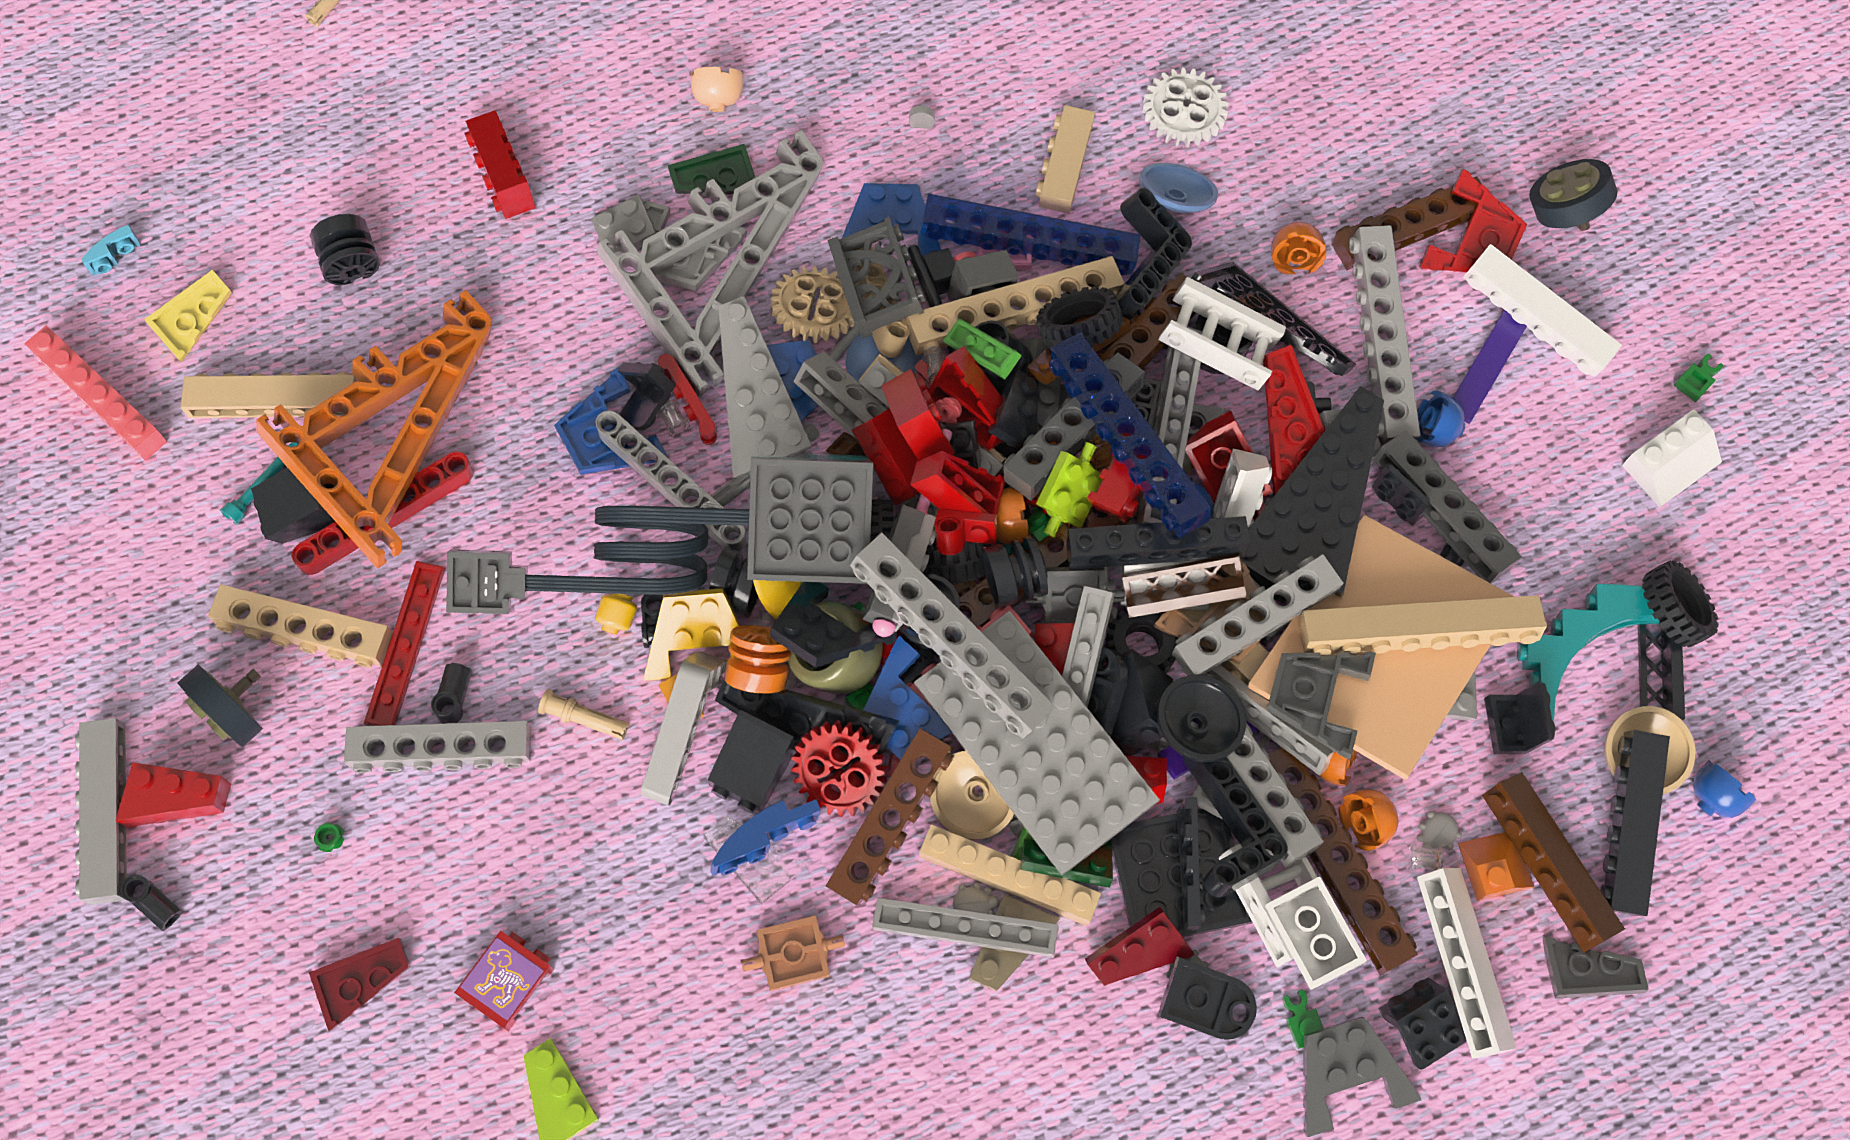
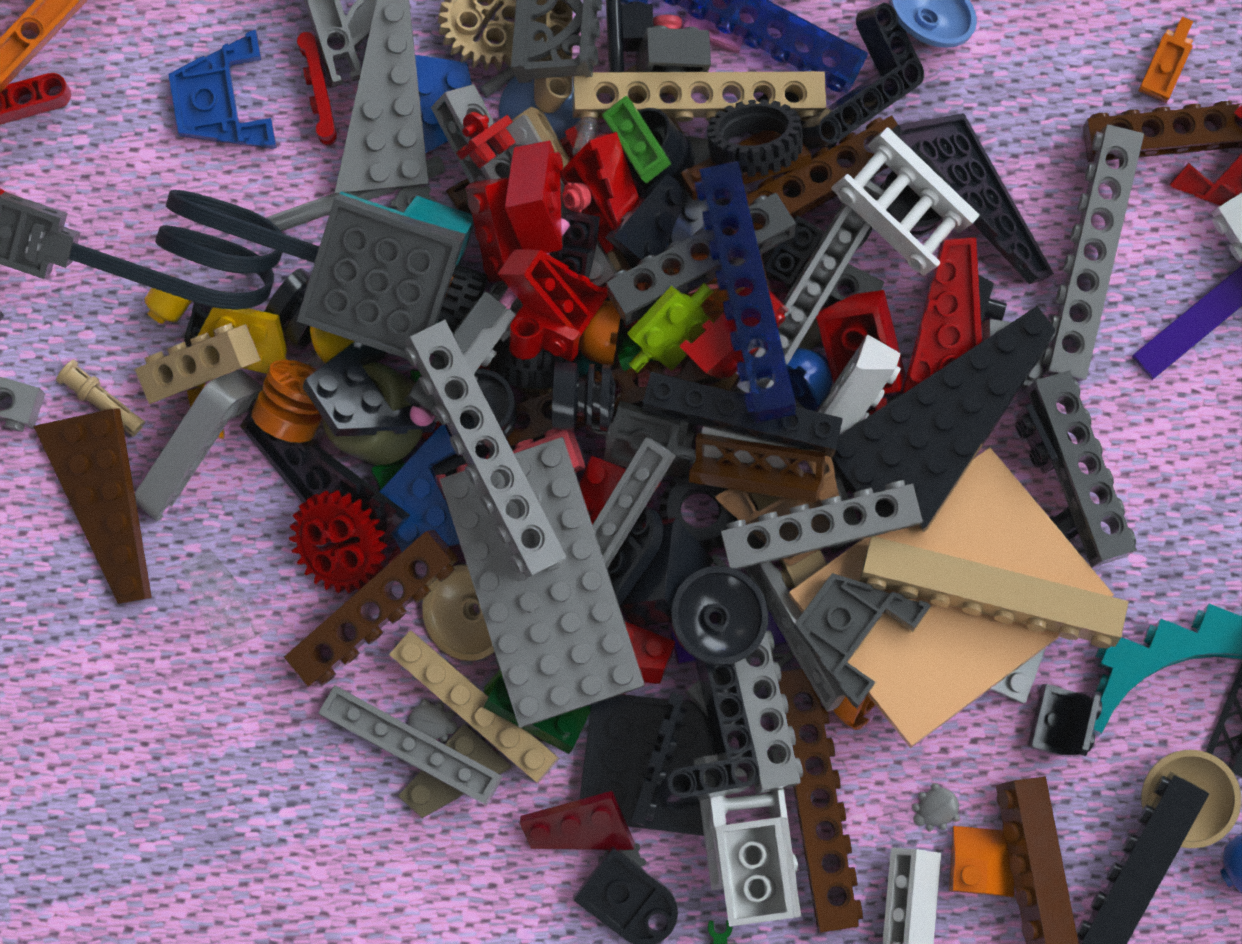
camera: 20 degrees right, 10 degrees up
(605, 788) = (97, 479): none -> reddish brown wing
(651, 393) = (273, 76): black bracket -> none
(661, 472) = (260, 163): light grey beam -> none
(673, 418) = (295, 103): clear bush -> none
(698, 630) = (196, 364): none -> tan brick
(751, 762) = (251, 506): black slope -> none
(752, 838) = (224, 585): blue slope -> none
(793, 953) = (231, 712): nougat plate -> none
(854, 388) = (477, 128): none -> red hips
(1299, 245) = (1038, 118): orange cylinder -> none
(1369, 812) = (869, 770): orange cylinder -> none
(1379, 174) = (1168, 62): none -> orange hinge
(1425, 858) = (910, 830): clear bush -> none
(1443, 417) = (1120, 367): blue cylinder -> none

